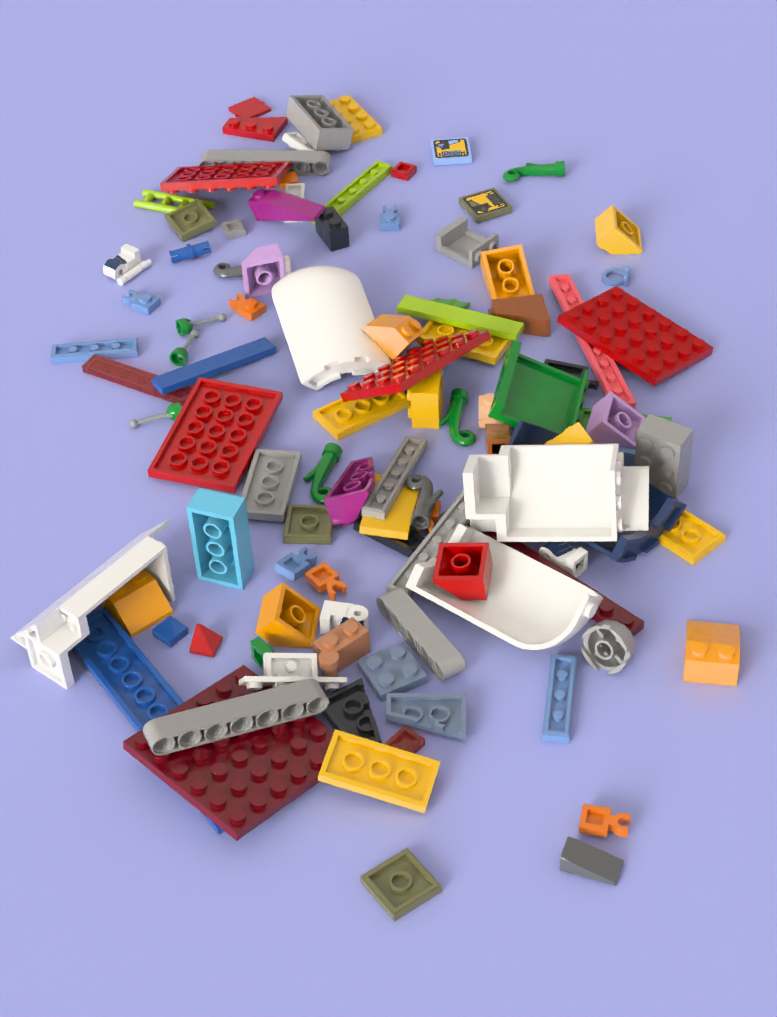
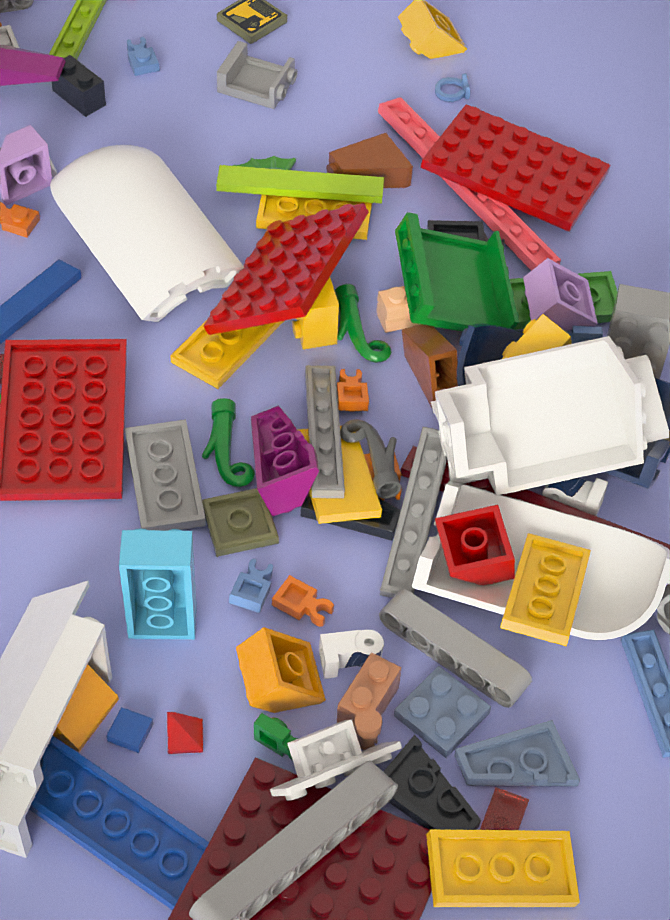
camera: 25 degrees left, 10 degrees up
(394, 333) = (233, 224): light orange slope -> none
(430, 460) = (352, 393): none -> orange plate
(501, 607) = (546, 589): none -> yellow plate
(506, 272) = (327, 113): light orange slope -> none

